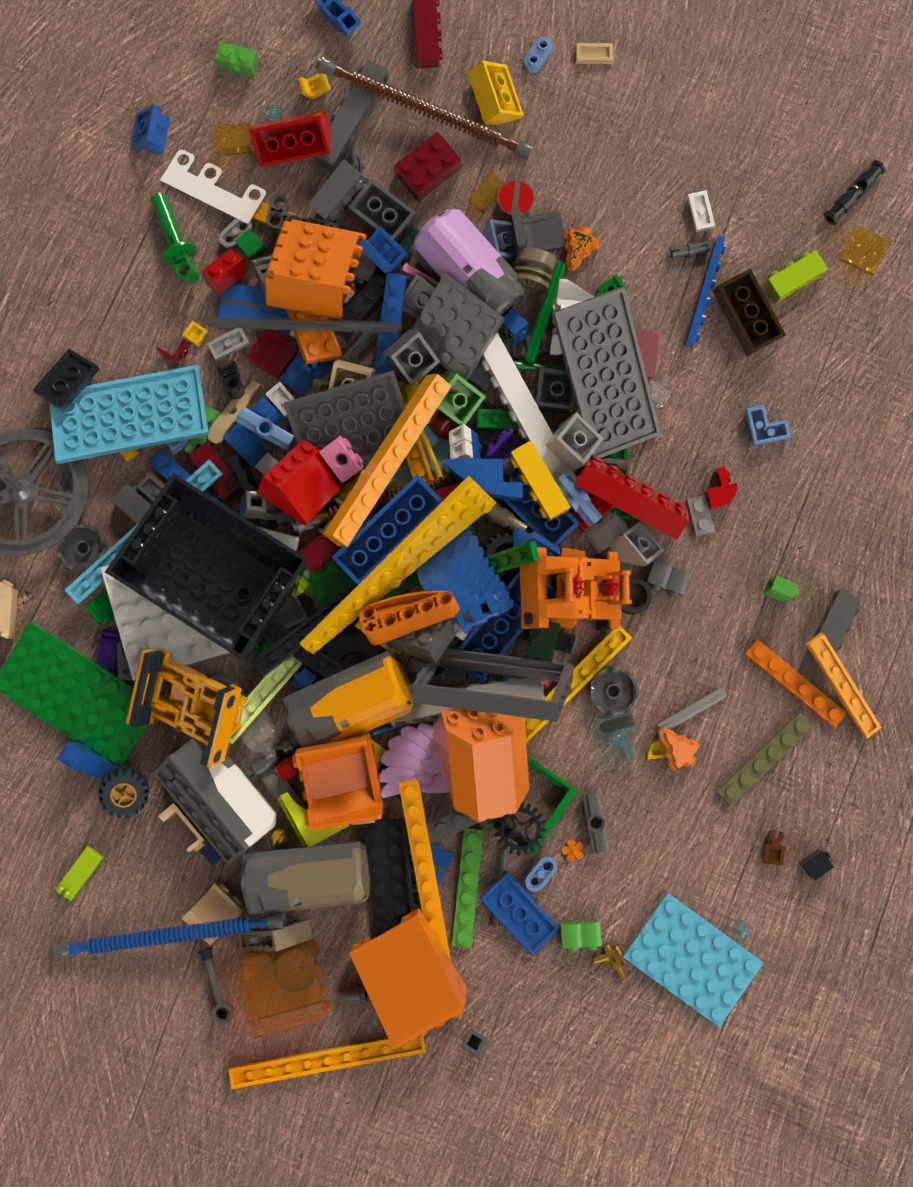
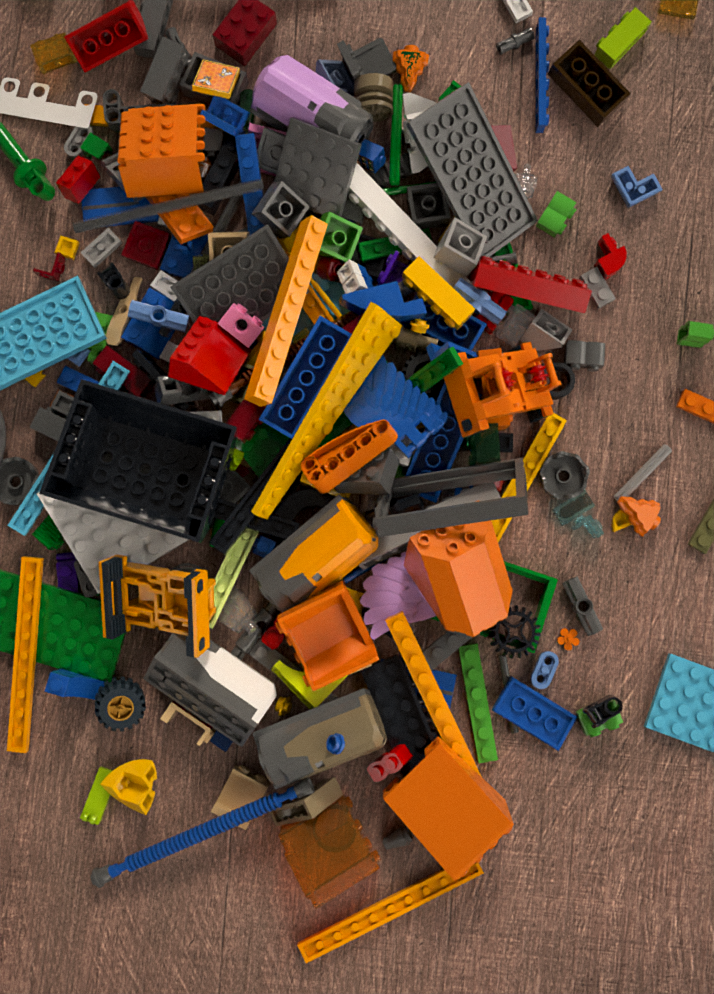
camera: 15 degrees left, 0 degrees up
(46, 718) = (25, 654): none -> light orange plate
(114, 871) = (132, 784): none -> yellow brick
(206, 956) = (245, 841): dark grey piece -> none
(274, 112) = (83, 16): clear light blue bush -> none
(317, 886) = (335, 743): none -> blue plate
(365, 920) = (389, 762): none -> red brick
(384, 212) = (216, 79): none -> tile
(475, 1043) = (529, 851): dark grey brick -> none
(486, 192) = (308, 39): clear yellow plate -> none
(513, 507) = (419, 326): none -> yellow plate
(515, 195) = (335, 31): red piece -> none
(582, 928) = (601, 710): none -> black piece
(612, 958) = (634, 731): pearl gold piece -> none
(680, 432) = (555, 214): none -> bright green brick

